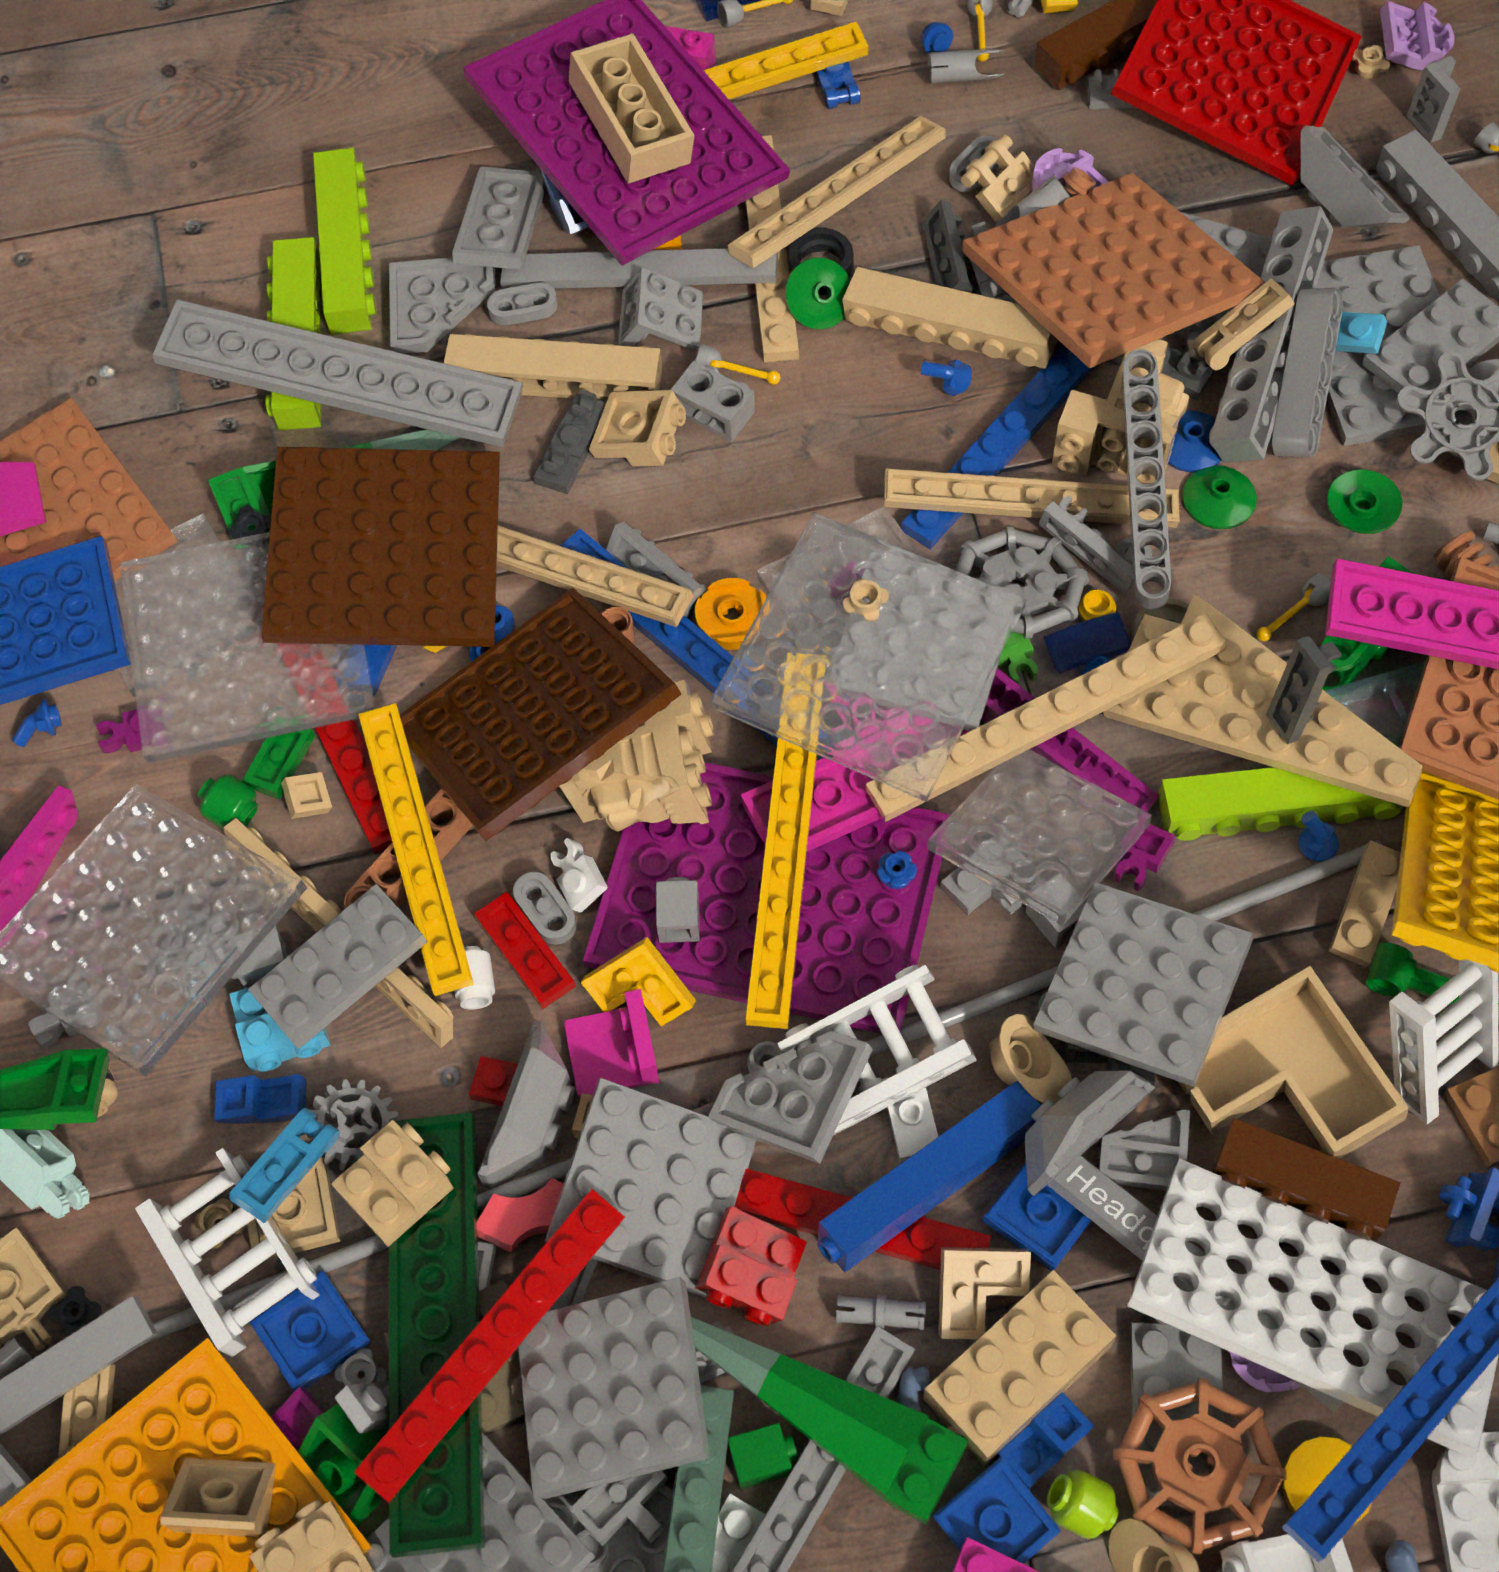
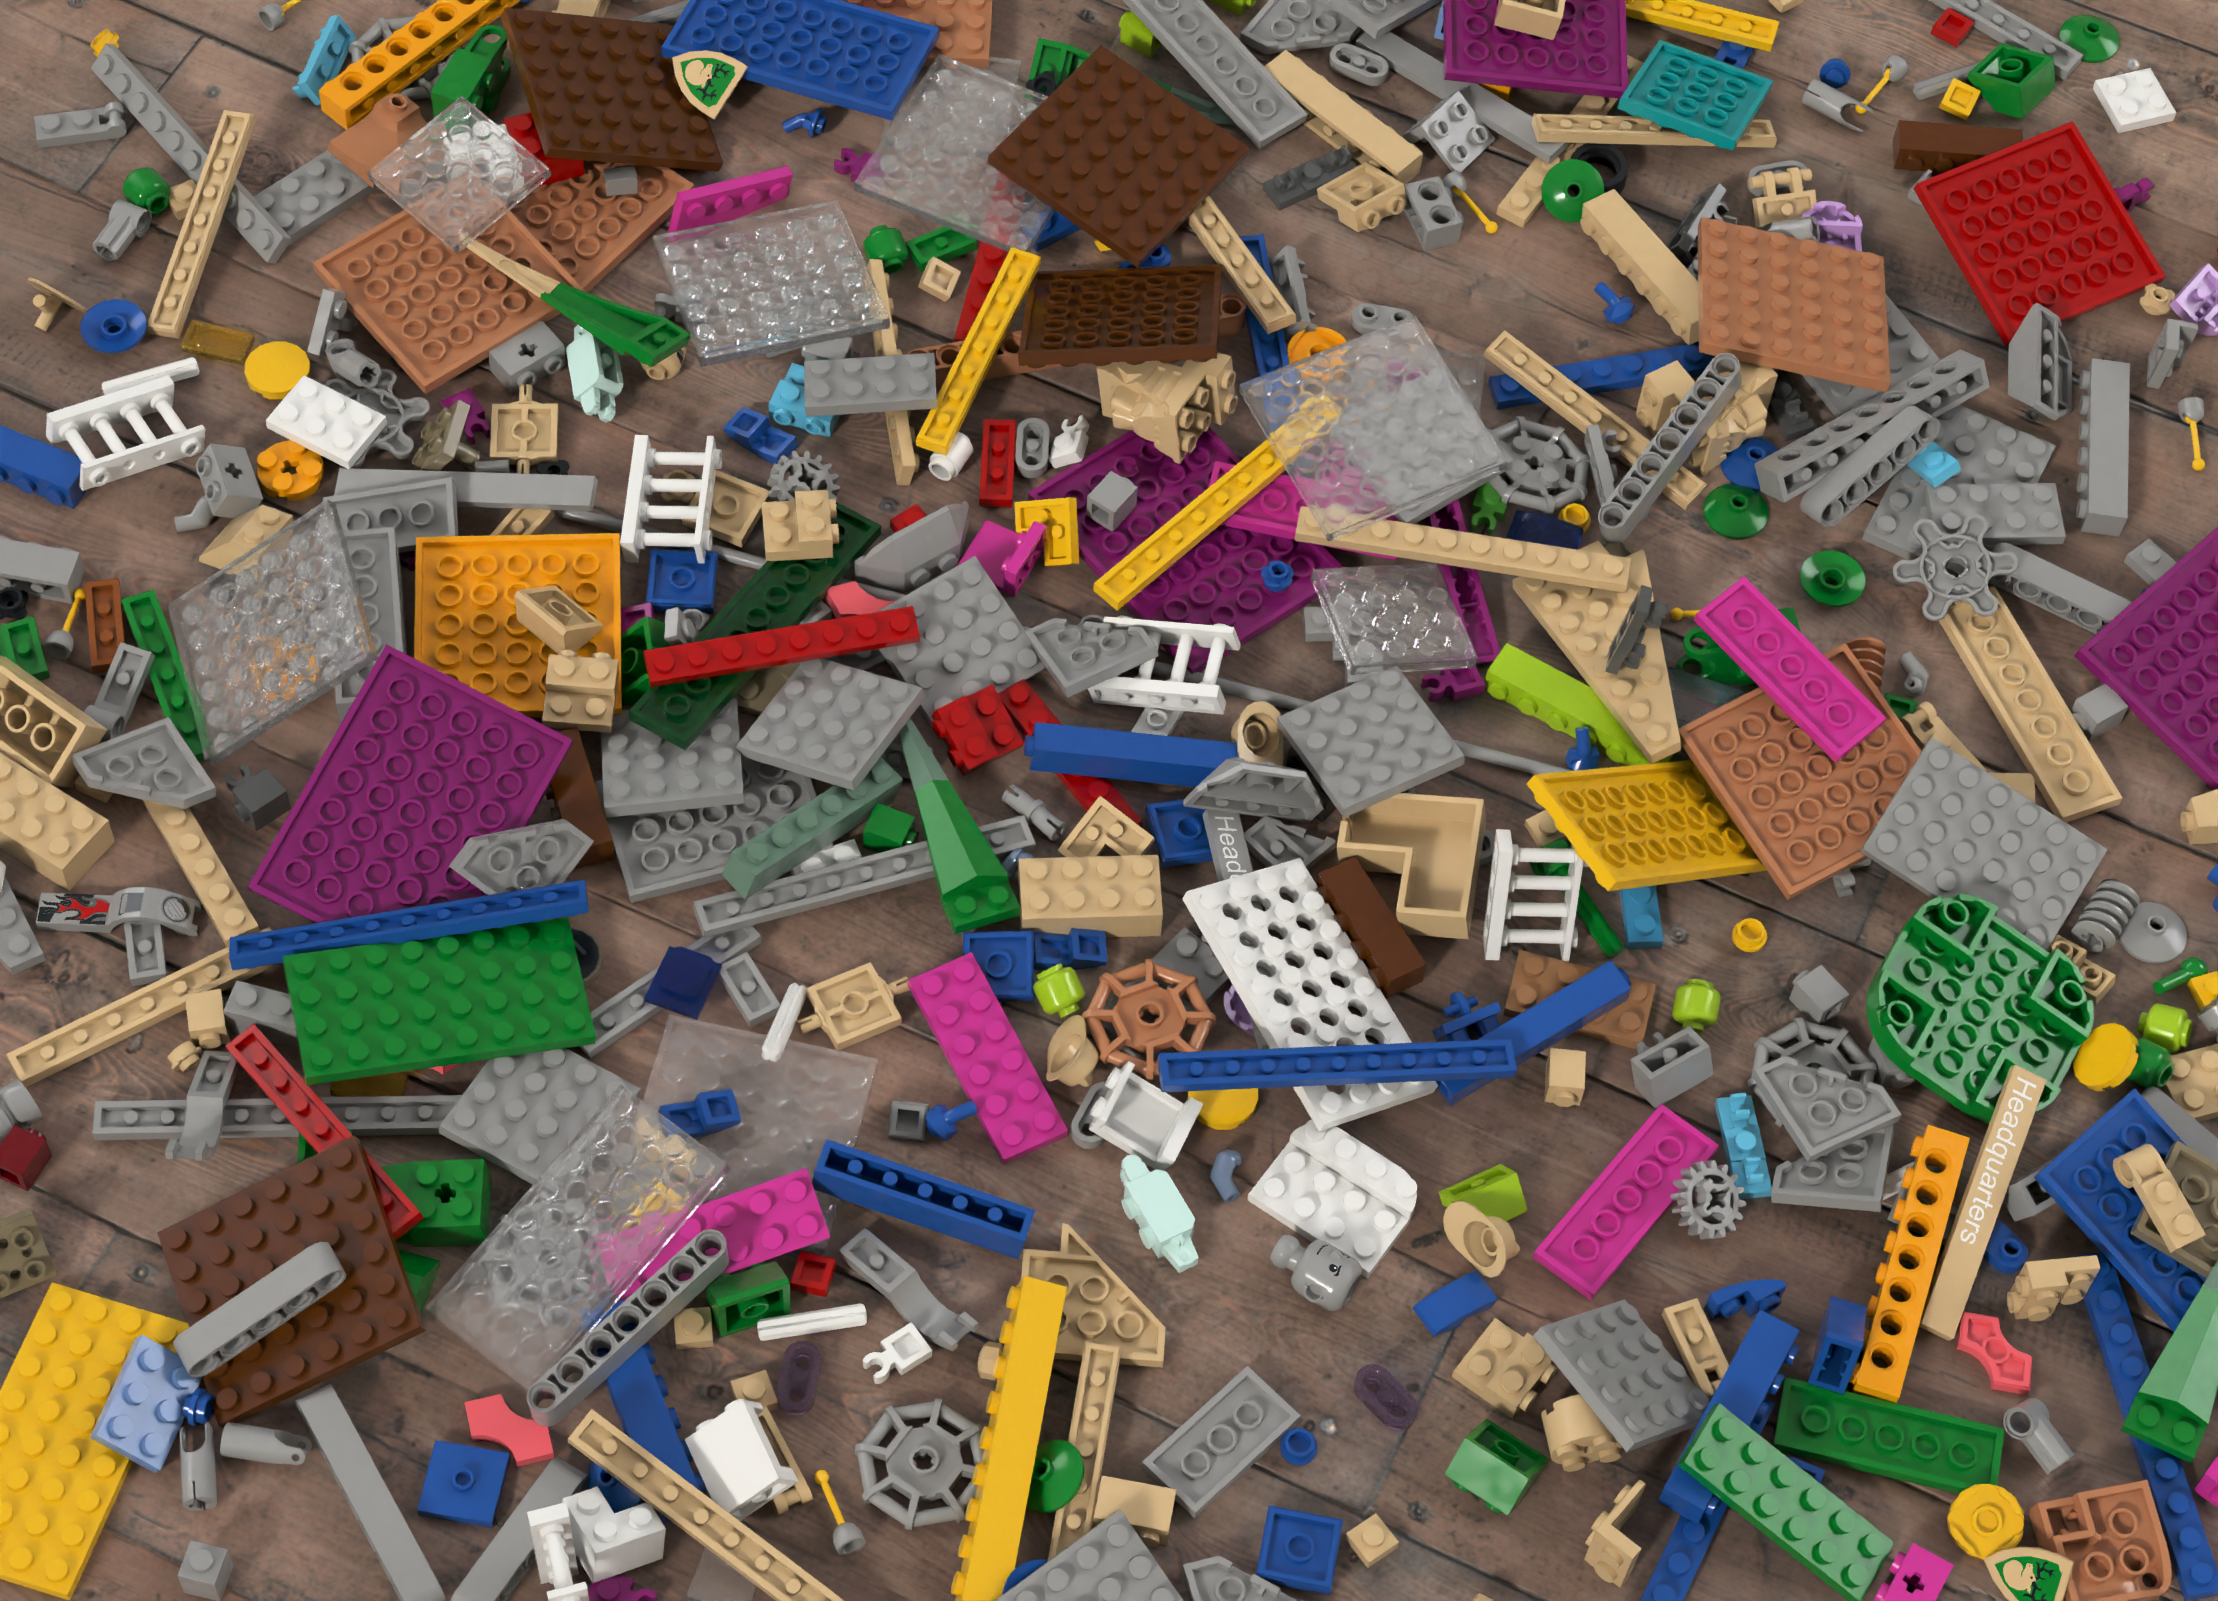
camera: 30 degrees right, 5 degrees down
(283, 1165) = (742, 468): dark azure plate -> none
(611, 1505) = (784, 787): light grey plate -> none
(760, 537) = (1378, 317): none -> light grey plate
(846, 134) = (1695, 95): none -> teal plate
(866, 589) = (1395, 379): tan plate -> none
(1078, 182) = (1833, 234): nougat plate -> none
(1242, 324) = (1849, 401): tan plate -> none

